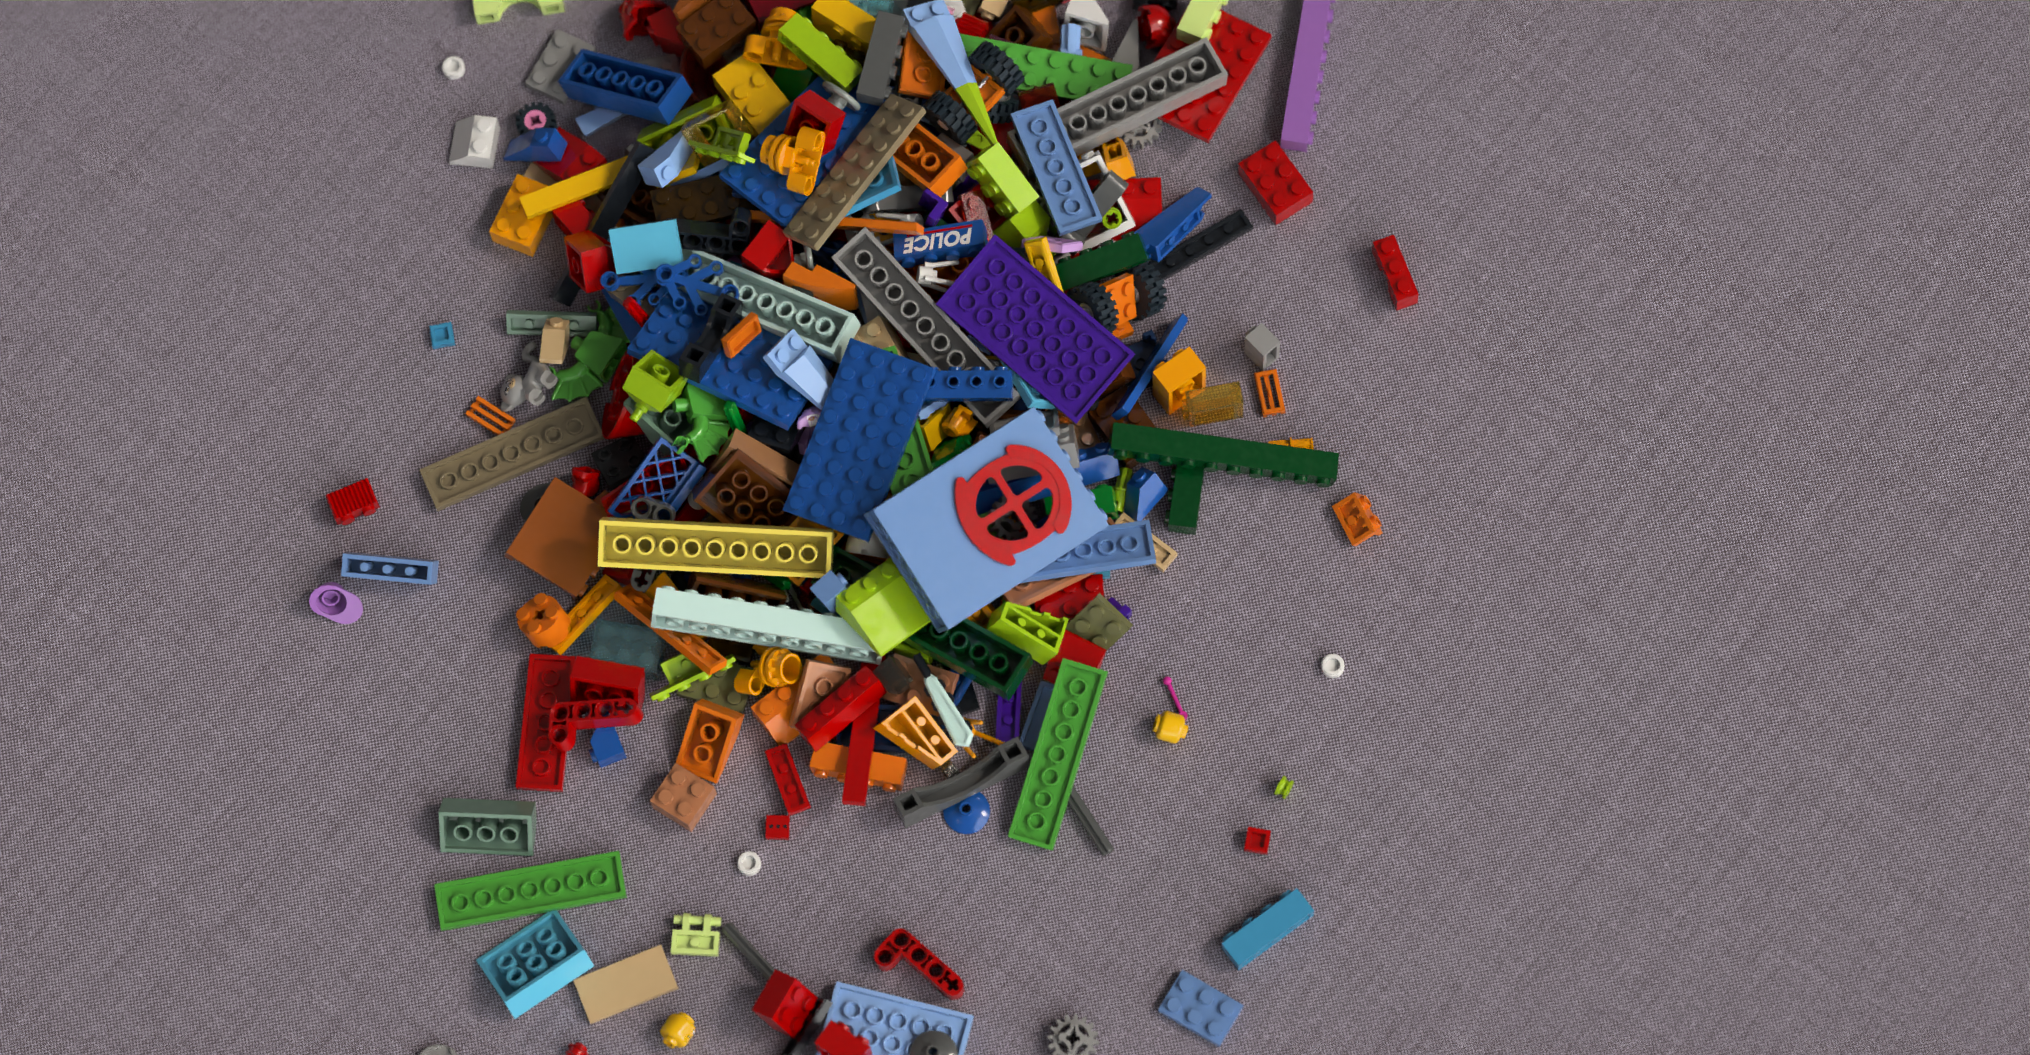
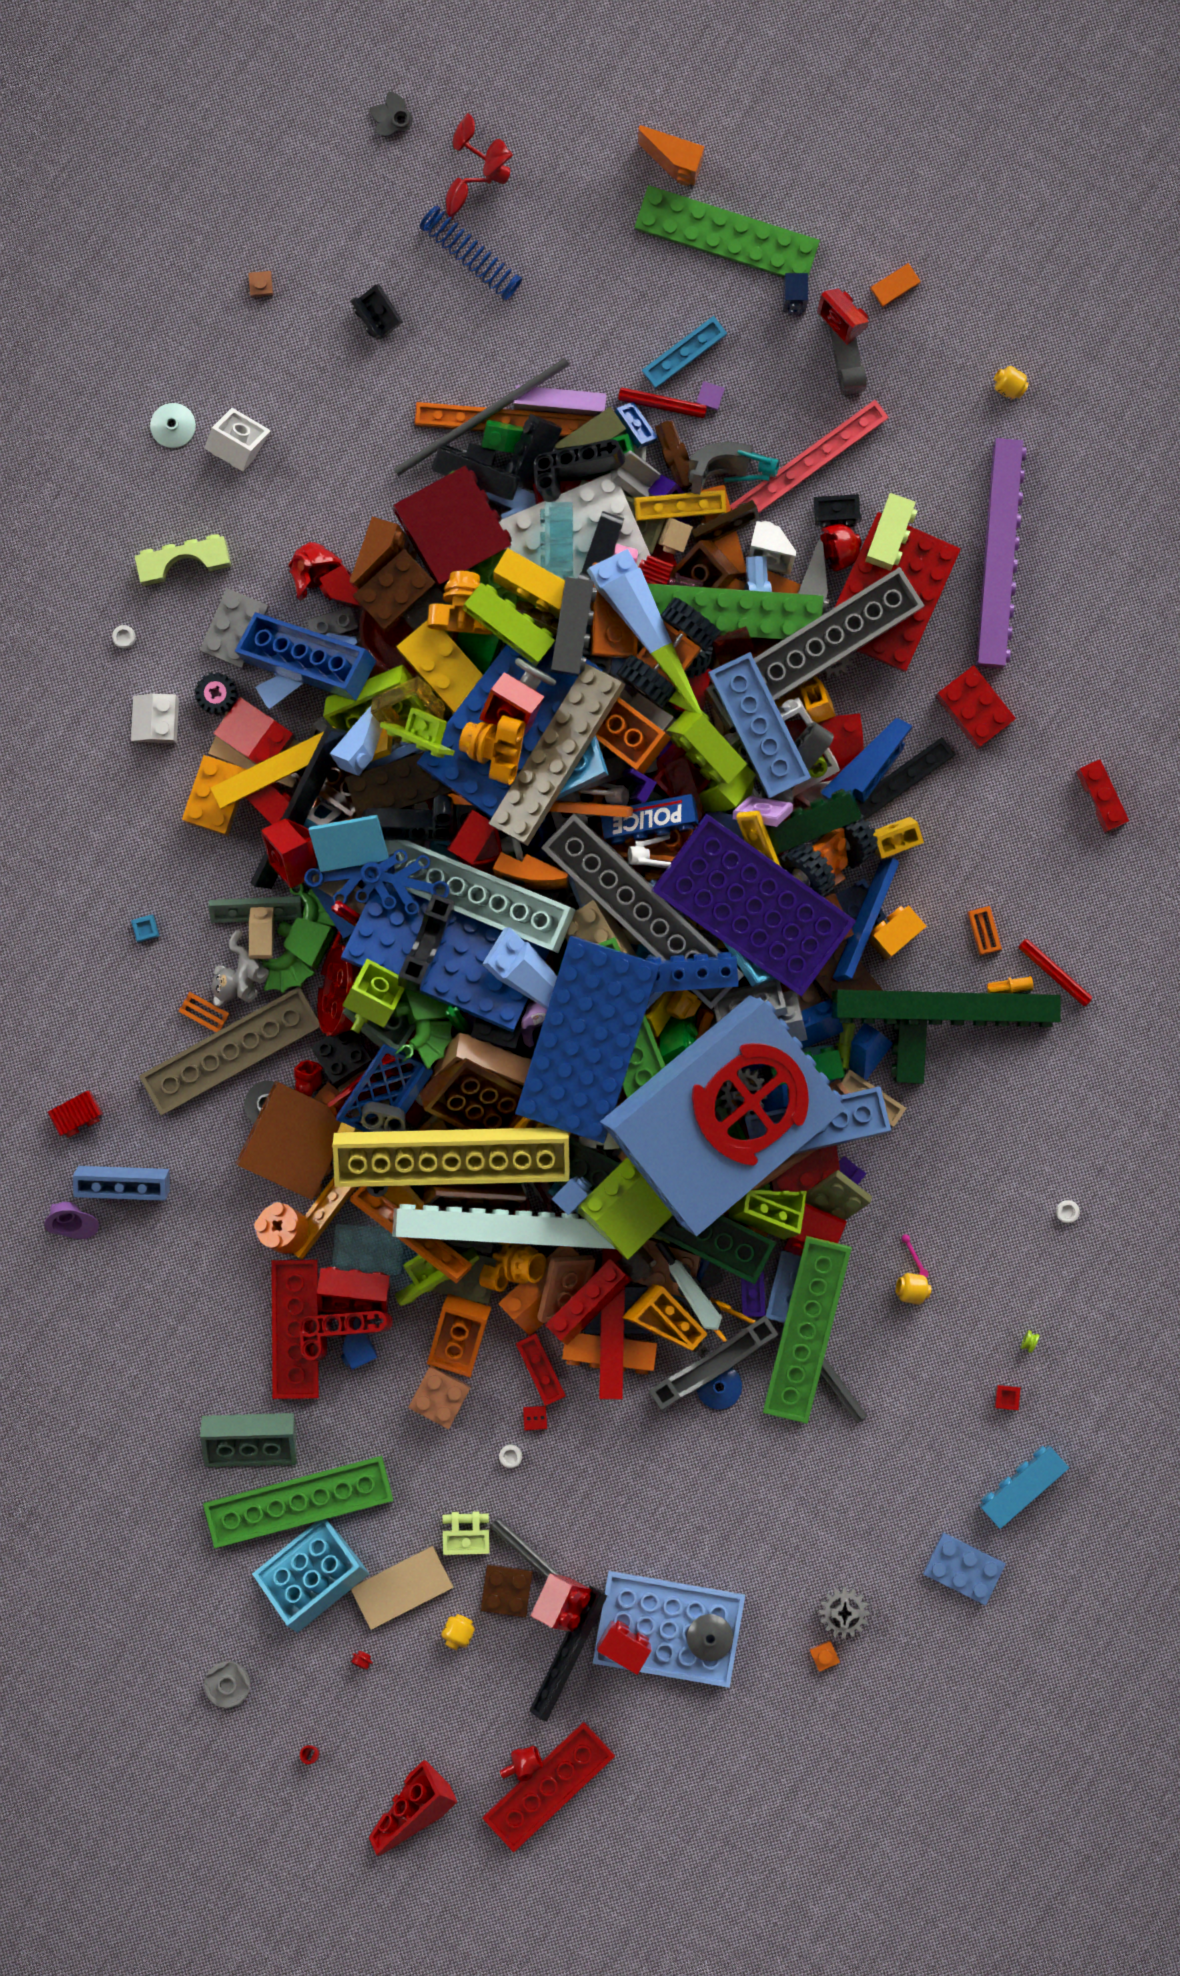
camera: 10 degrees left, 15 degrees up
(537, 145) = (219, 723): blue slope -> none
(731, 995) = (506, 1590): none -> reddish brown plate
(741, 335) = (456, 935): orange tile -> none
(922, 967) = (691, 1550): red beam -> none
(1188, 296) = (897, 837): none -> yellow brick
(1212, 404) = (931, 952): clear yellow window -> none
(1261, 346) = (975, 887): light grey brick -> none
(1337, 436) = (1055, 972): none -> red axle
(1357, 518) = (1082, 1058): orange bracket -> none

